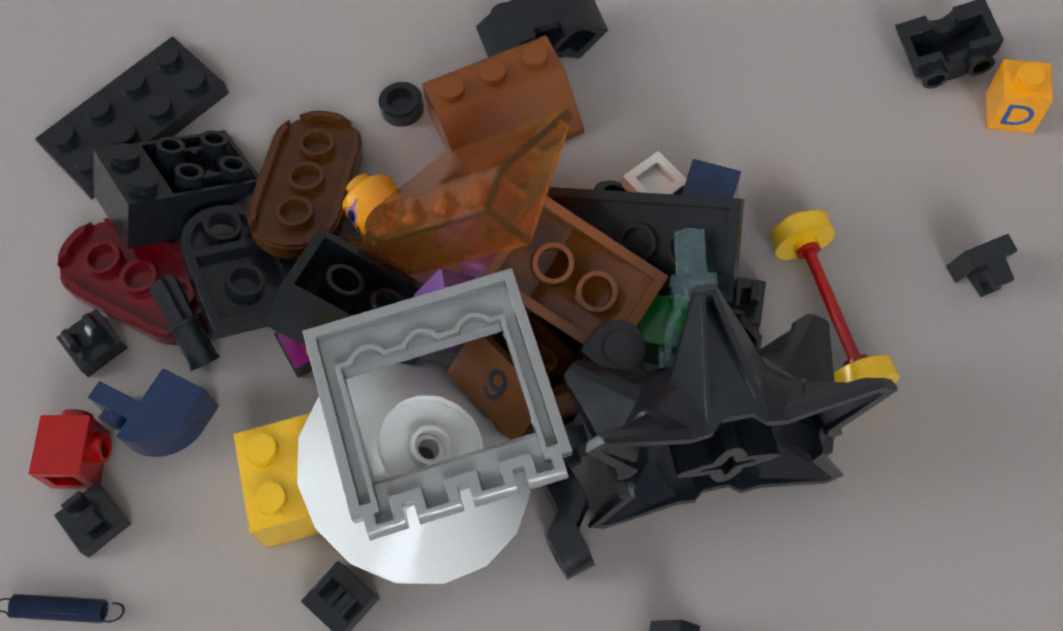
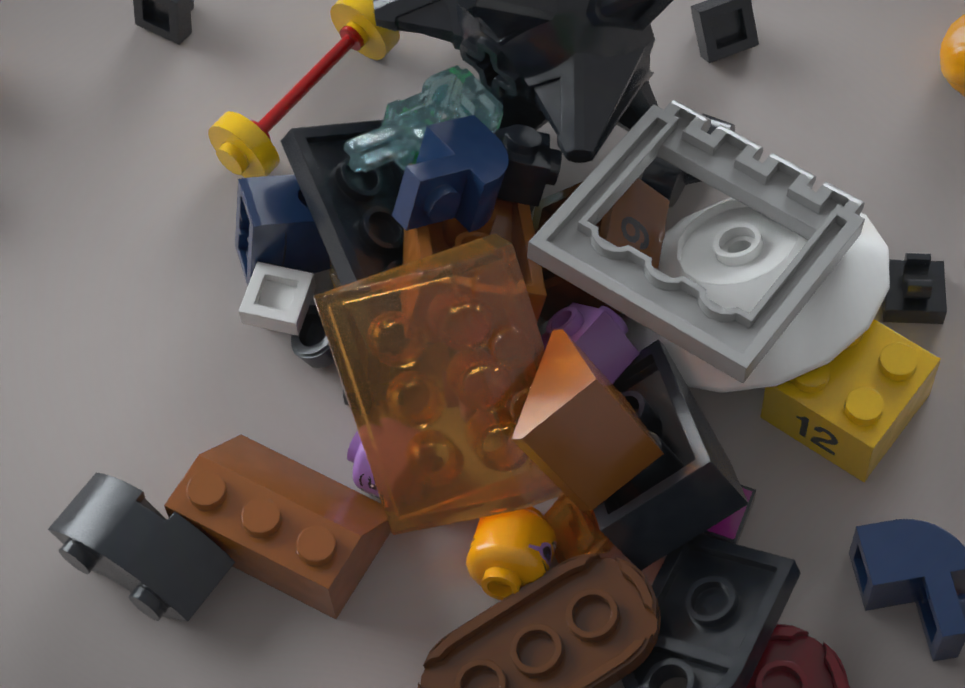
camera: 130 degrees left, 5 degrees down
(183, 322) = (808, 623): black axle -> none
(380, 245) = (581, 427): none -> dark orange slope
(401, 104) = (347, 652): black tile -> none
(614, 289) = (453, 176): none -> dark blue brick

